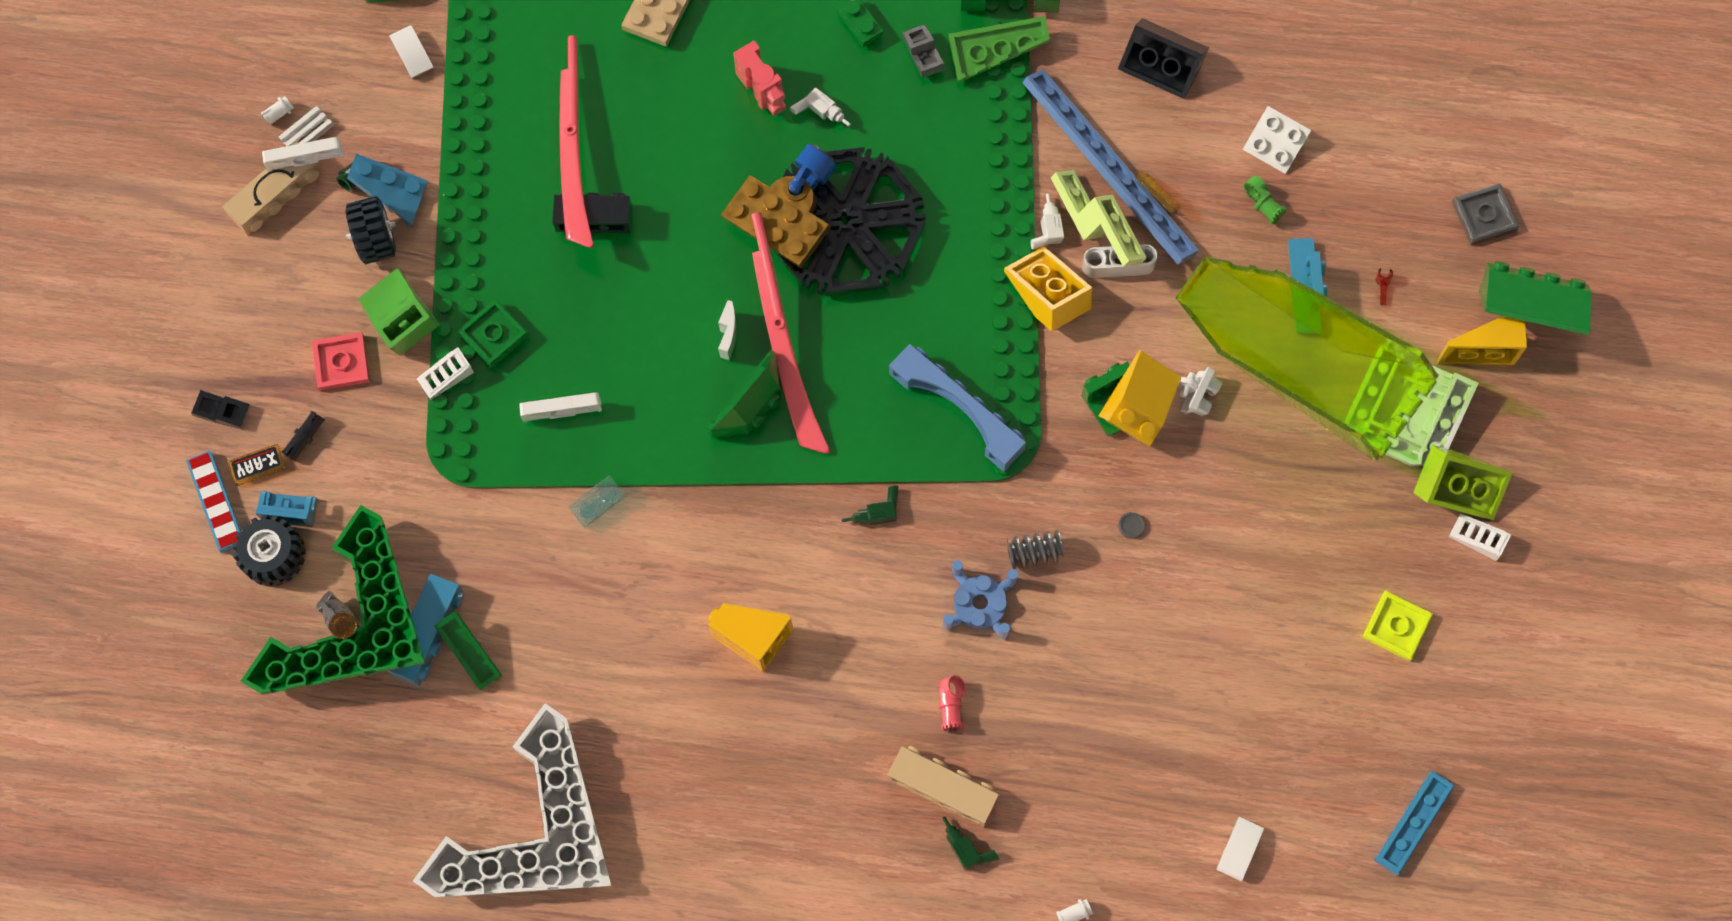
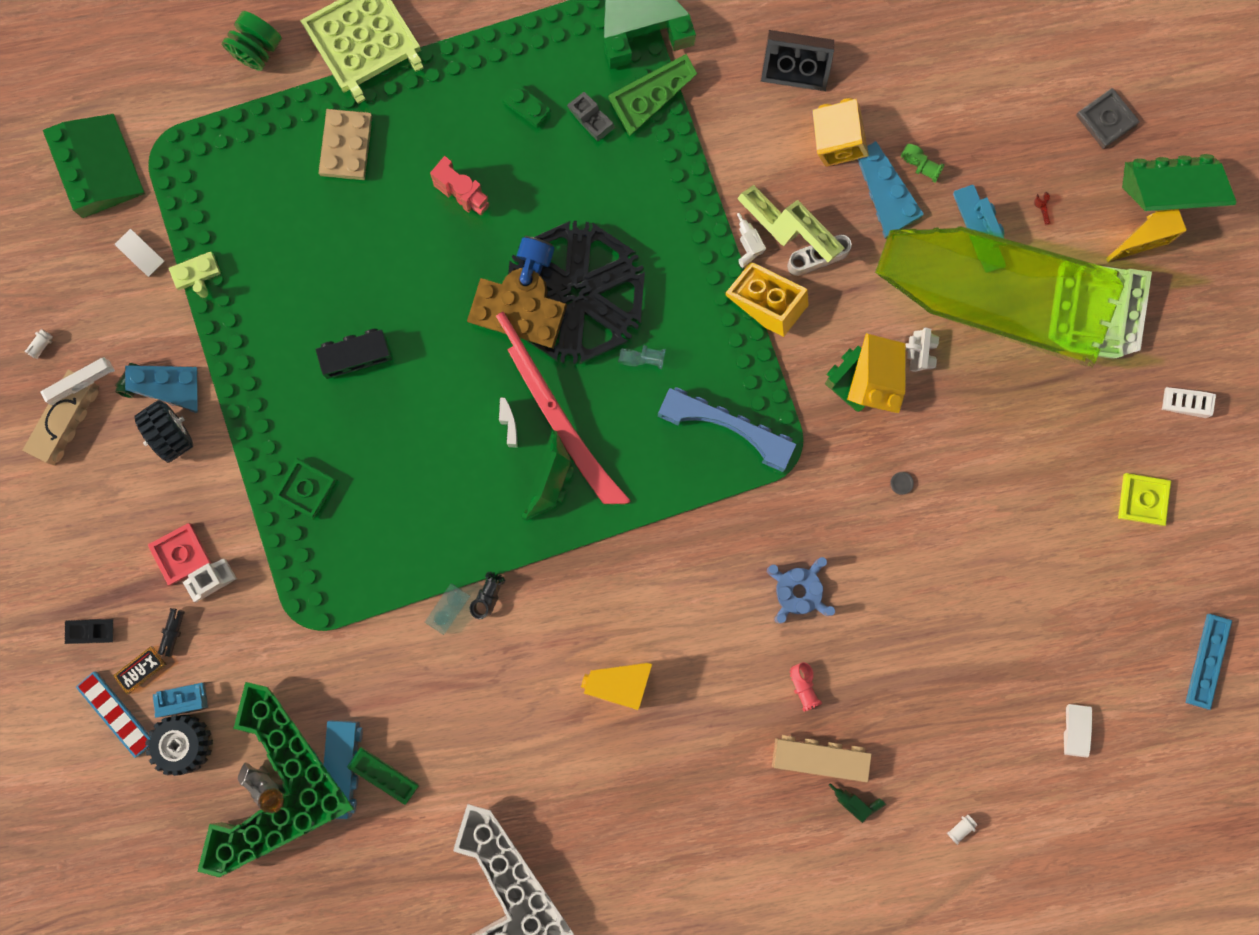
camera: 25 degrees left, 10 degrees up
(304, 127) = (65, 349): white tile -> none
(361, 393) = (209, 579): none -> white brick
(398, 312) = (214, 496): bright green slope -> none
(439, 367) = (293, 529): white slope -> none
(460, 86) = (195, 272): none -> yellowish green plate
(560, 407) = (387, 537): white piece -> none
(574, 209) = (335, 352): coral piece -> none
(644, 501) = (487, 595): none -> black connector
(821, 105) = (518, 193): white piece -> none
(878, 512) = (689, 540): dark green piece -> none
(884, 305) = (636, 358): none -> clear light blue connector
(1035, 549) = (831, 530): flat silver piece -> none
(1110, 166) = (783, 172): medium blue plate -> none
(1157, 191) = (831, 183): clear yellow tile -> none
(1182, 142) = (840, 132): none -> yellow slope
(1216, 217) = (890, 196): none -> dark azure wing
(1277, 139) = (916, 105): white hinge -> none
(1462, 483) = (1162, 362): lime slope -> none

